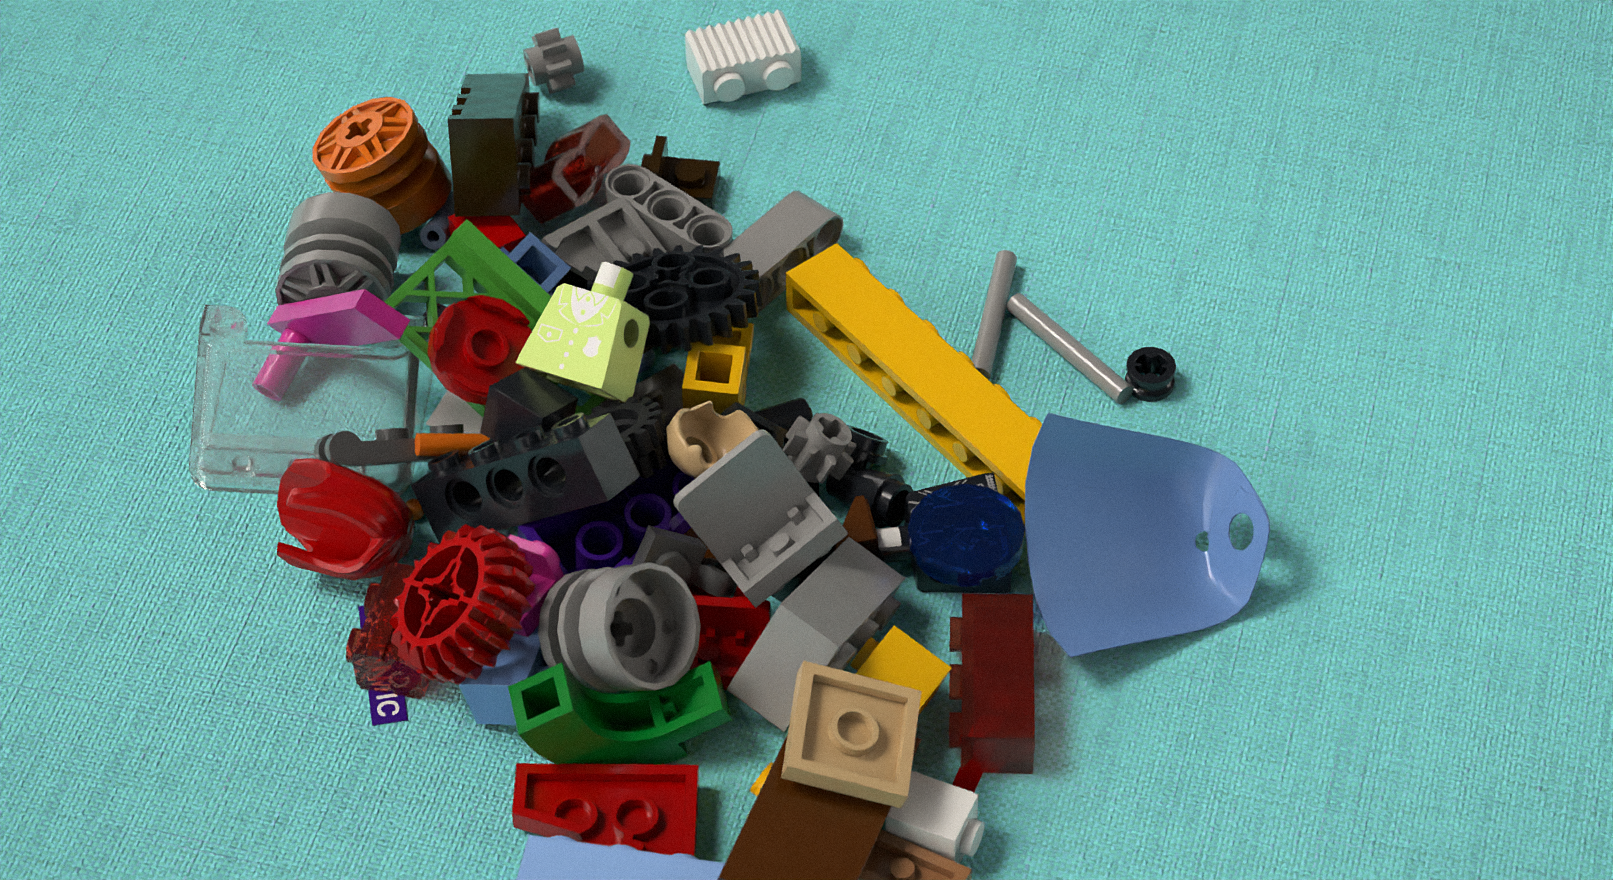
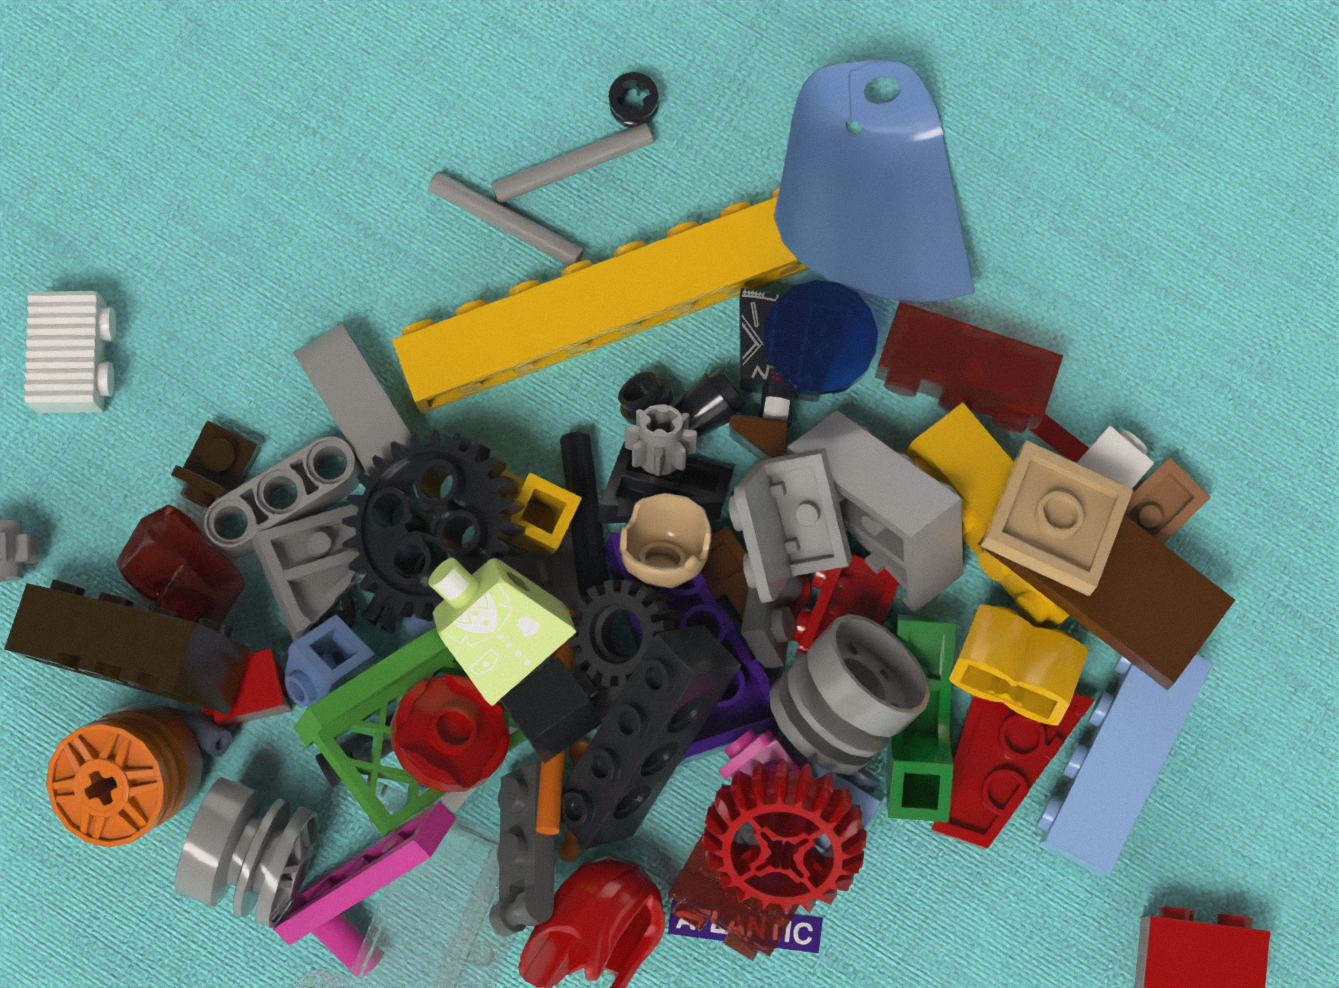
camera: 70 degrees left, 30 degrees up
(703, 775) = (1019, 664): none -> yellow brick

